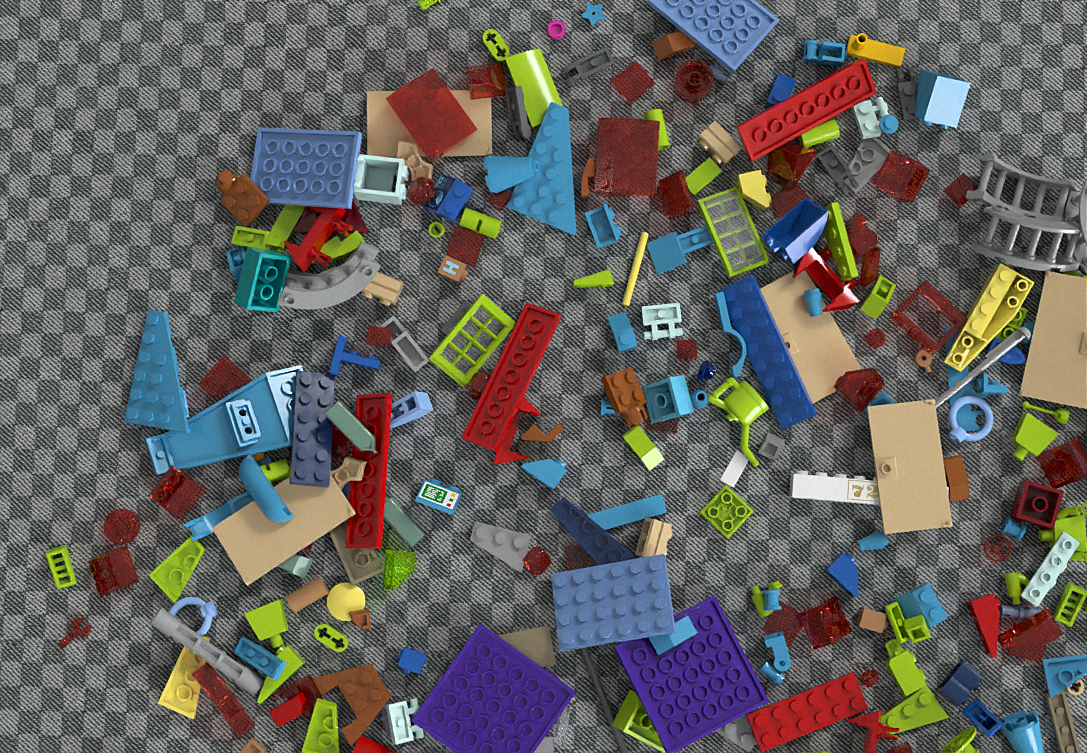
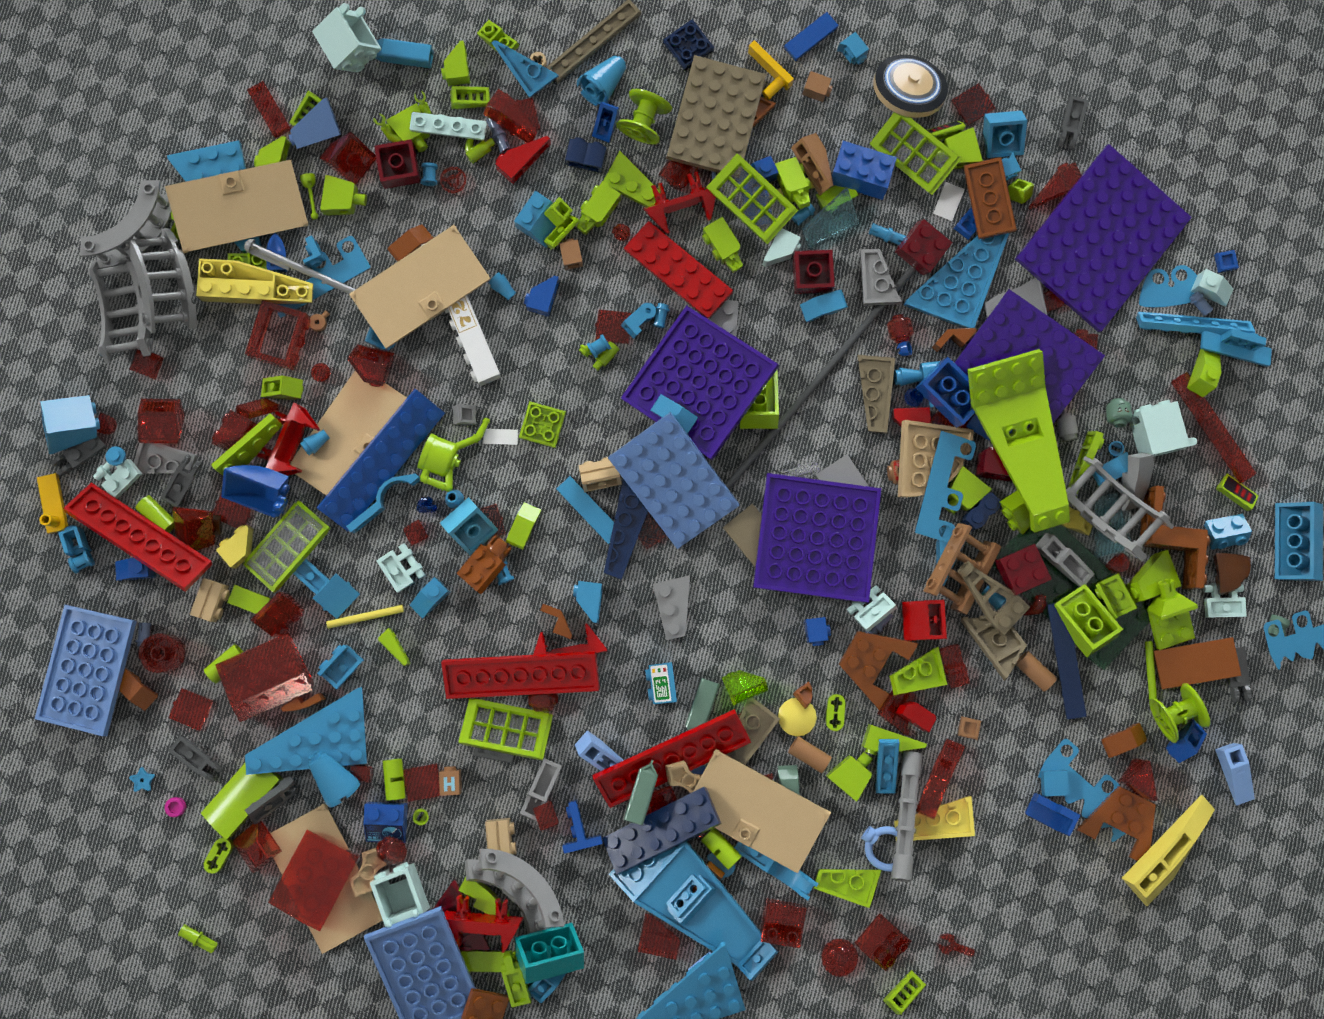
camera: 120 degrees left, 0 degrees up
(263, 491) = (740, 844): dark azure brick -> none
(537, 560) = (672, 567): clear red slope -> none
(825, 623) = (594, 292): clear red slope -> none
(922, 130) = (107, 424): none -> clear red tile
(957, 433) = (370, 259): light blue piece -> none

